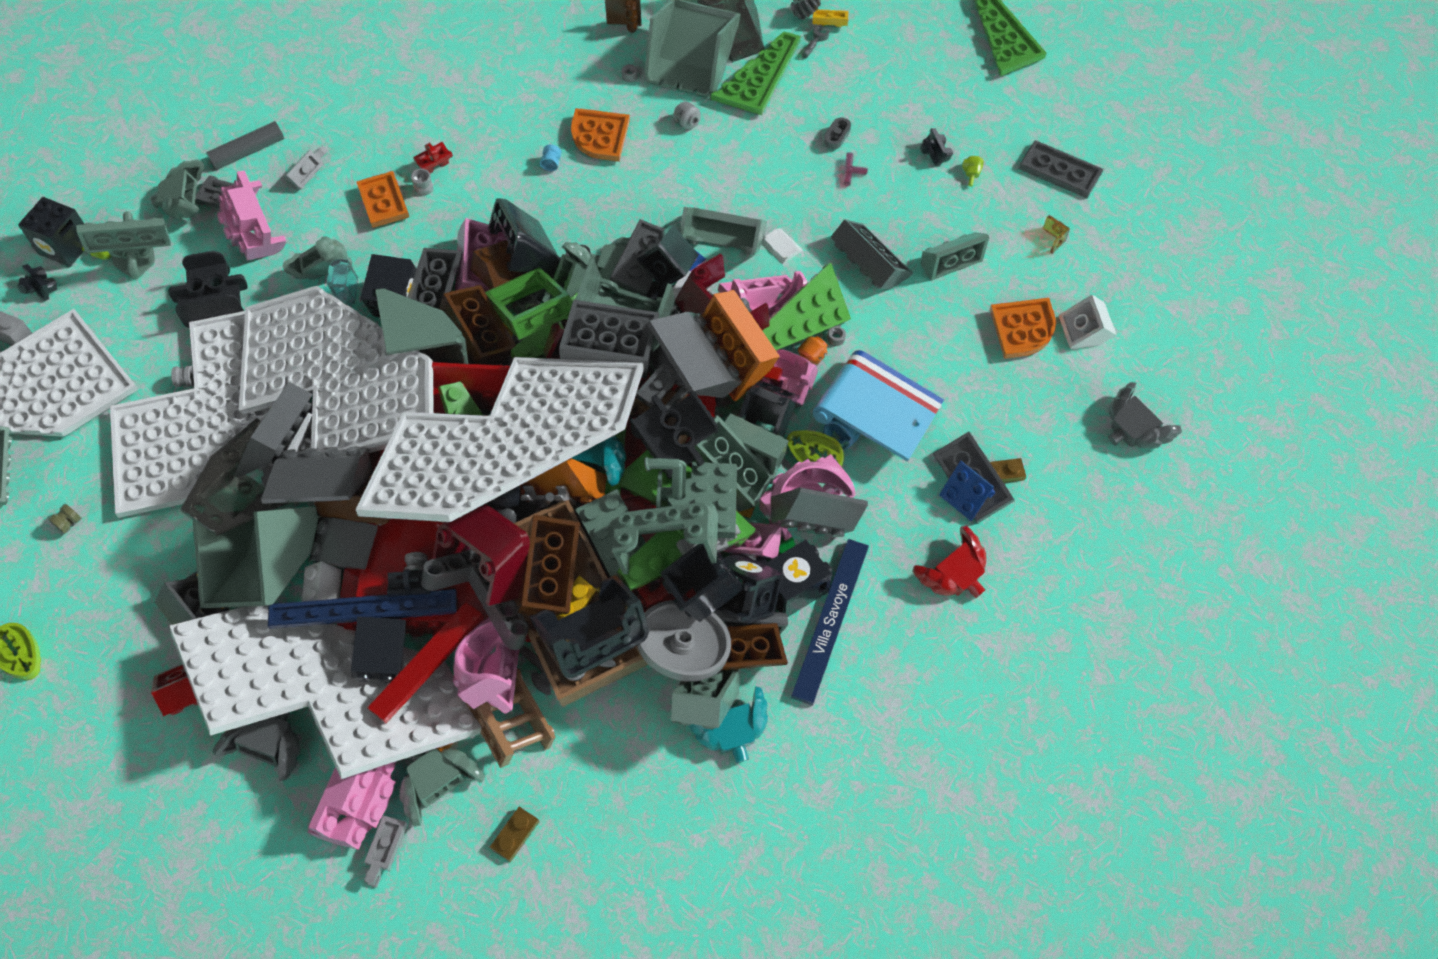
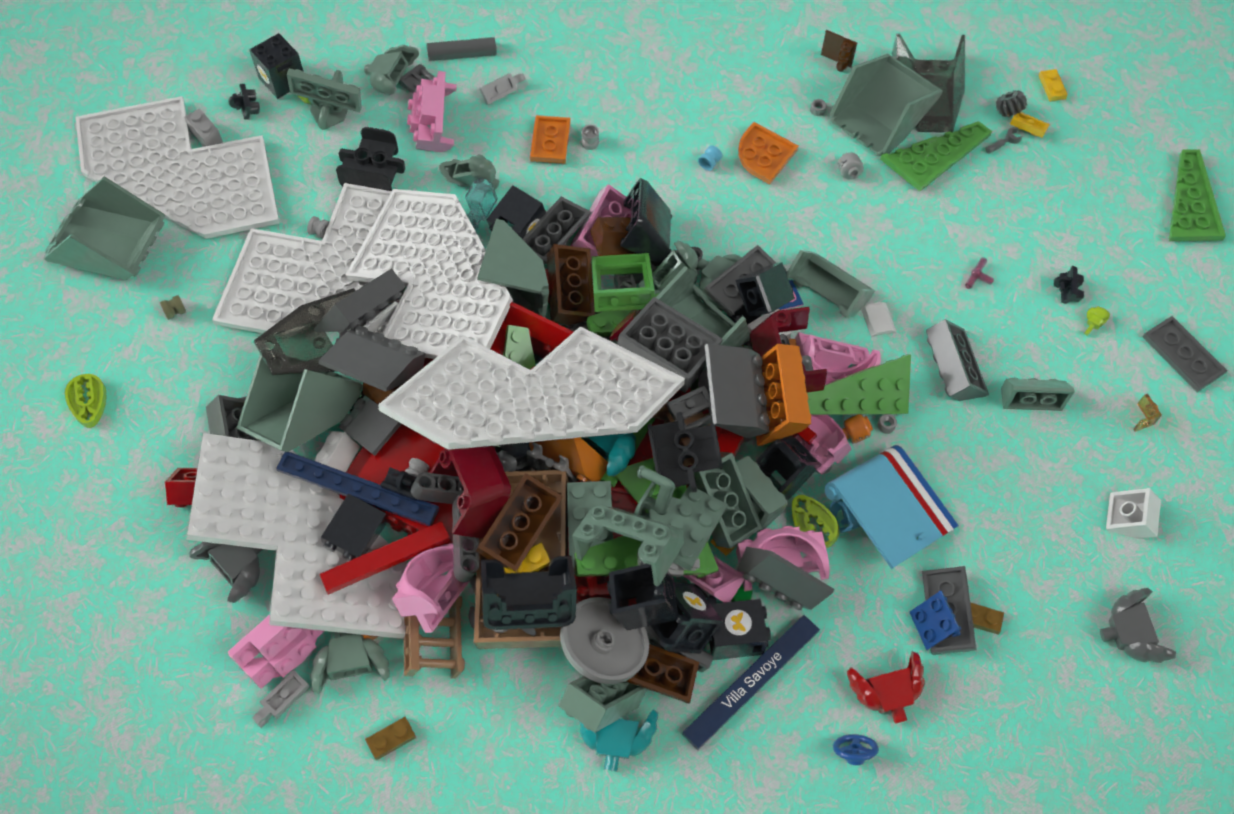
camera: 25 degrees right, 0 degrees up
(439, 154) = (615, 117): red hips -> none
(835, 136) = (980, 235): dark grey plate -> none
(955, 639) = (855, 753): none -> blue piece
(1023, 326) = (1070, 489): orange plate -> none

